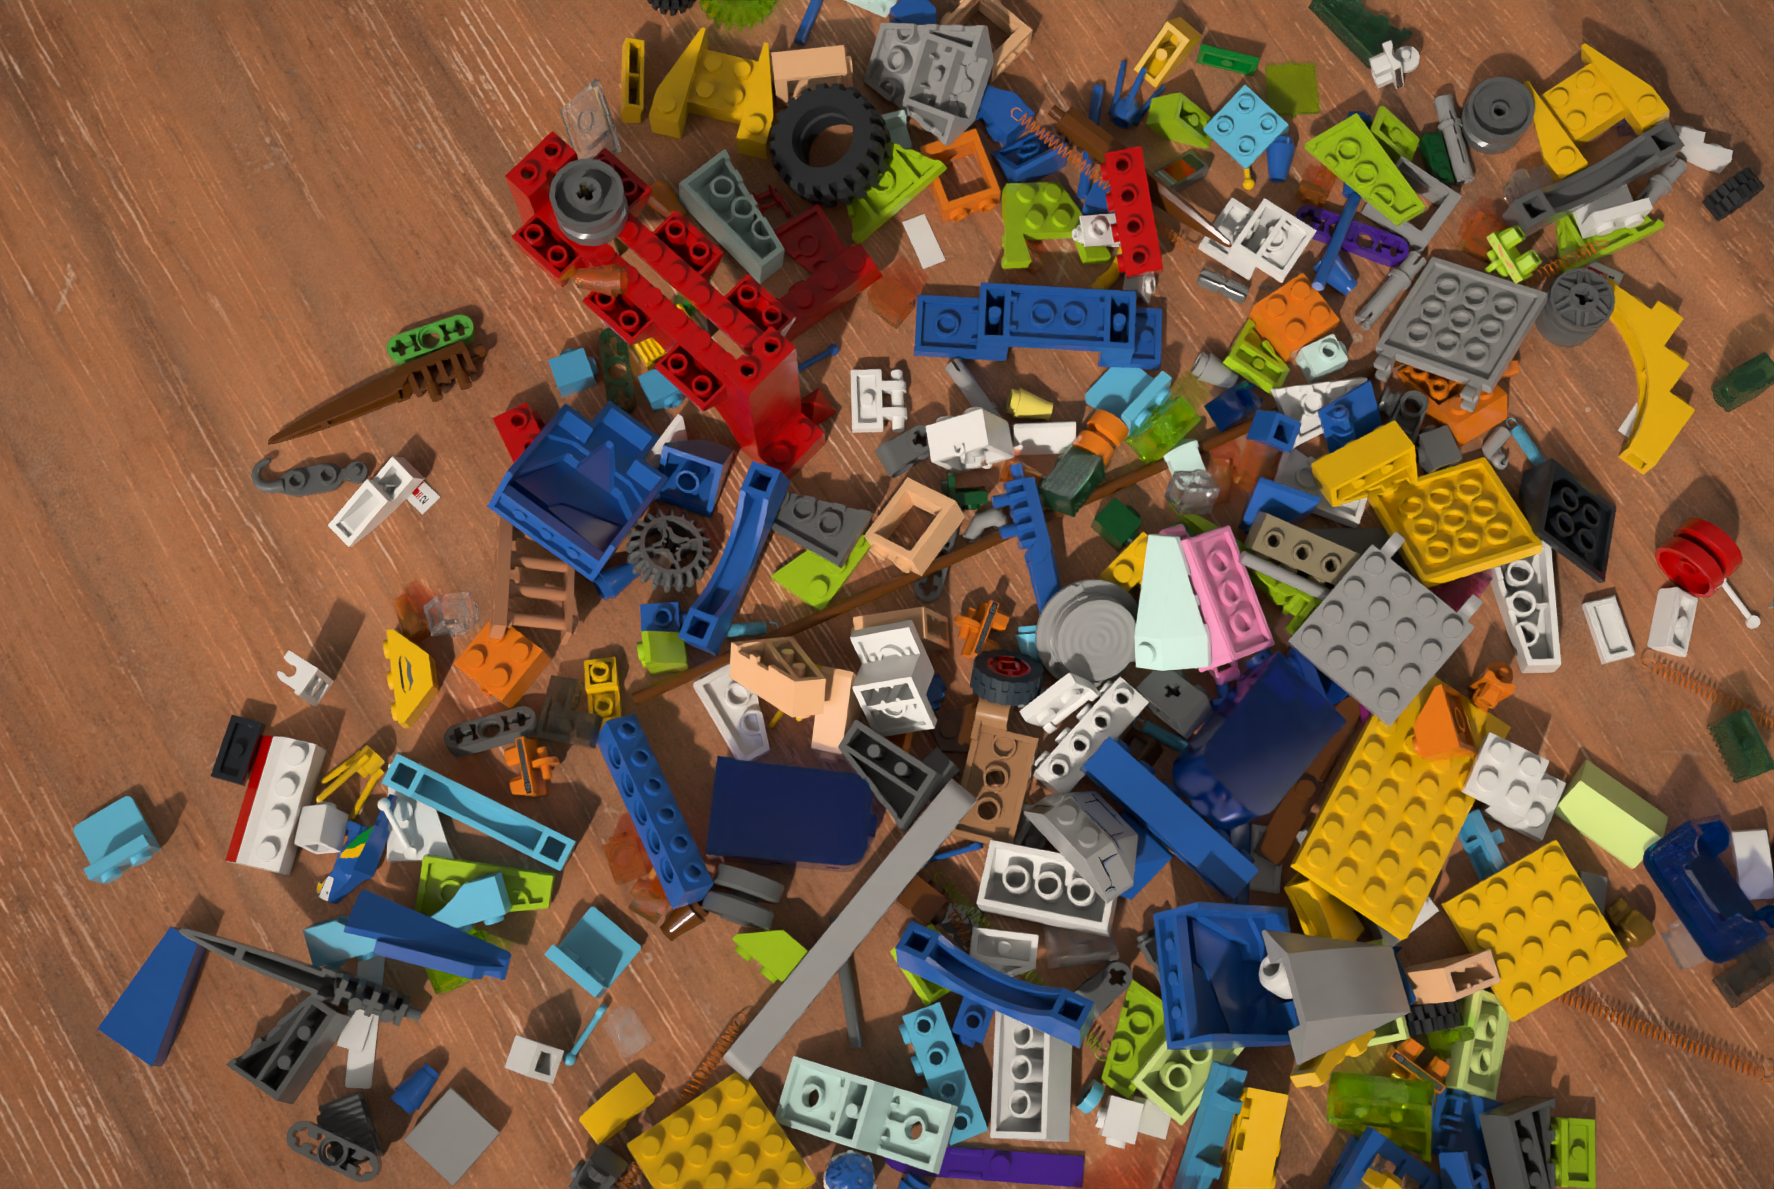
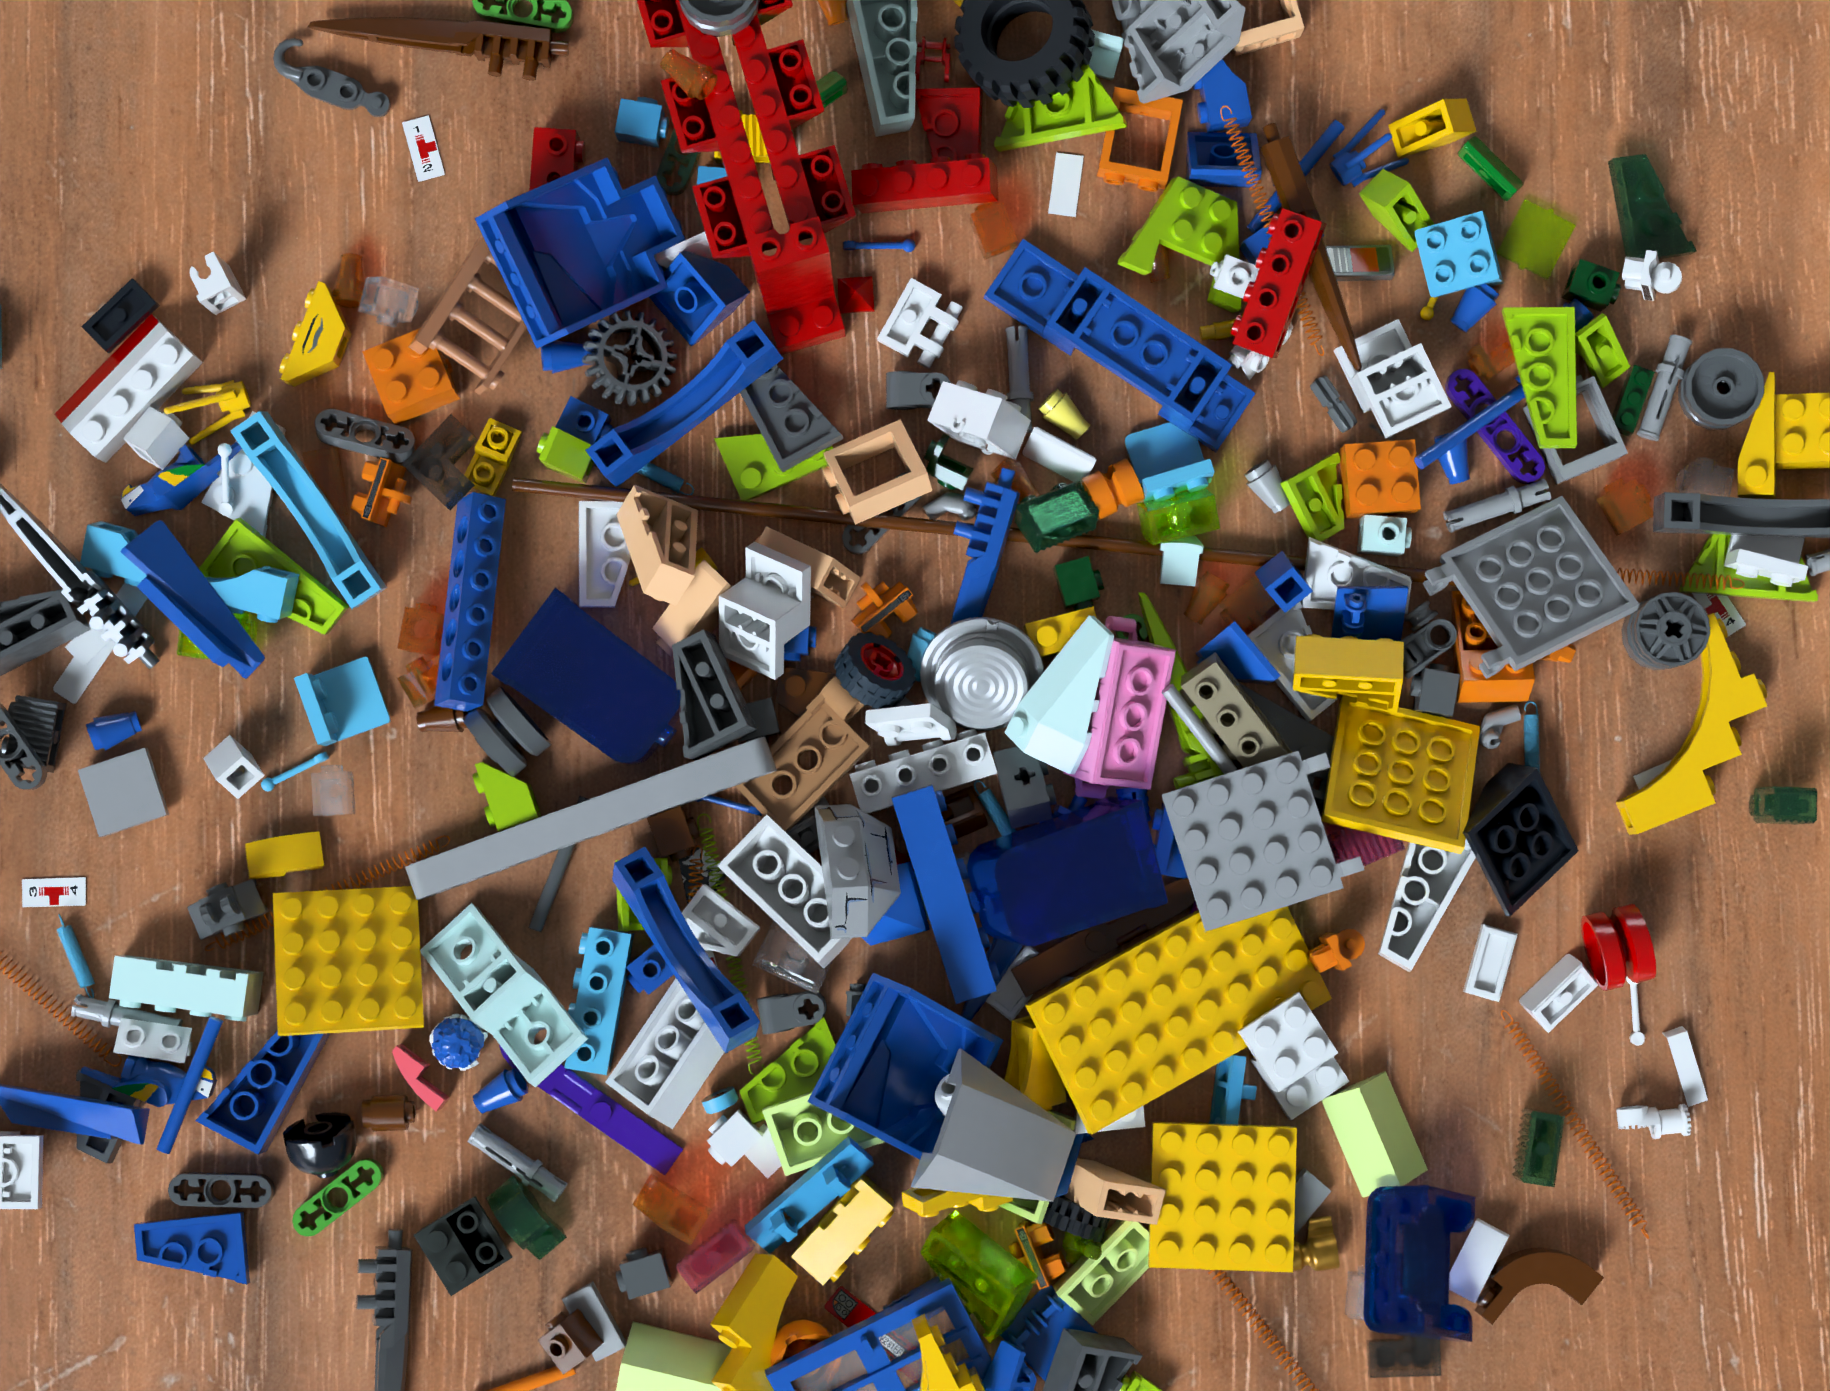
camera: 30 degrees right, 10 degrees up
(376, 500) = (380, 143): white slope -> none
(1192, 492) = (1167, 595): clear brick -> none
(1233, 405) = (1264, 532): clear blue brick -> none
(1354, 95) = (1592, 285): none -> dark green brick
(1443, 727) = (1258, 962): orange slope -> none
(1506, 257) = (1629, 543): lime hips -> none

